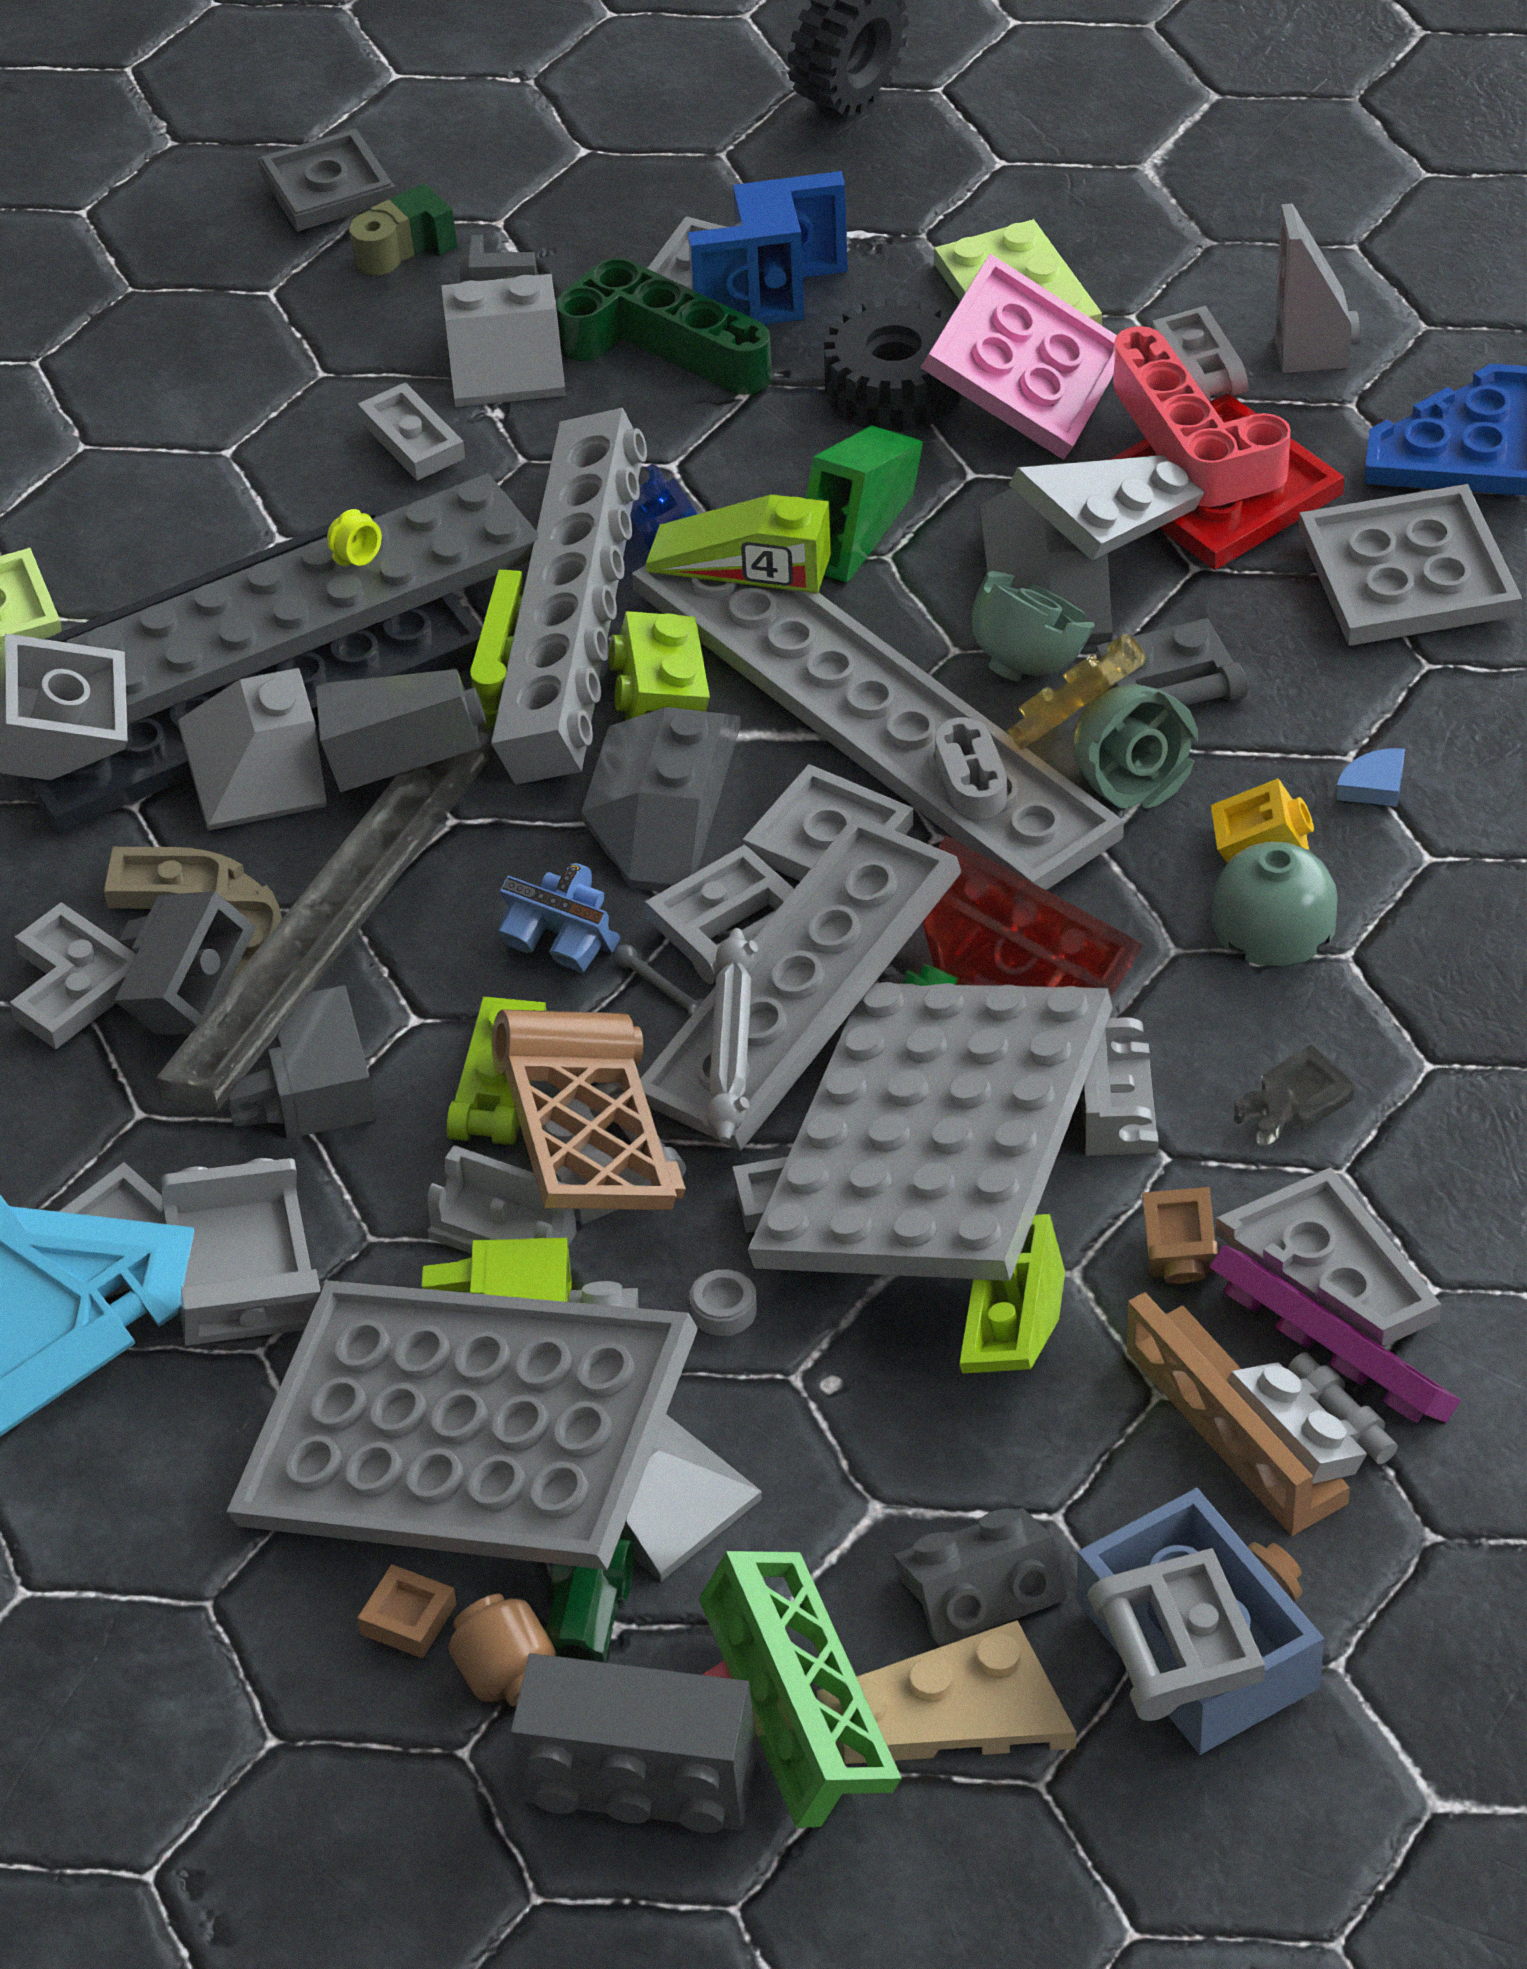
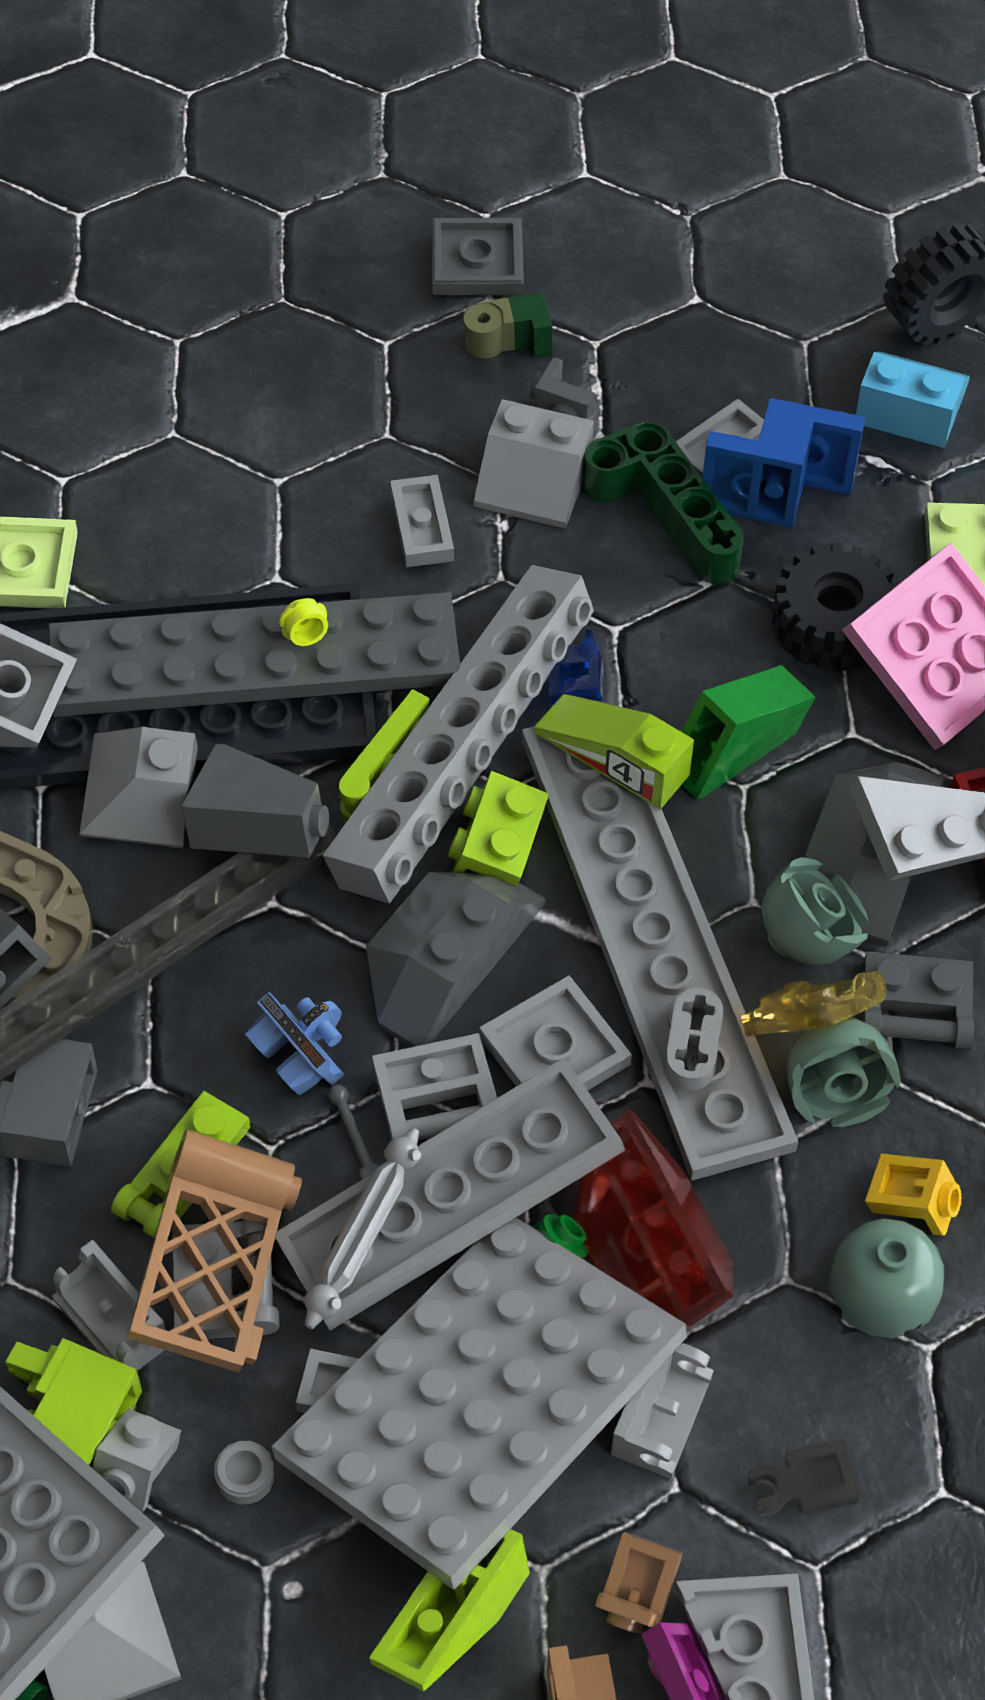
camera: 20 degrees right, 10 degrees up
(875, 156) = (910, 398): none -> medium azure slope

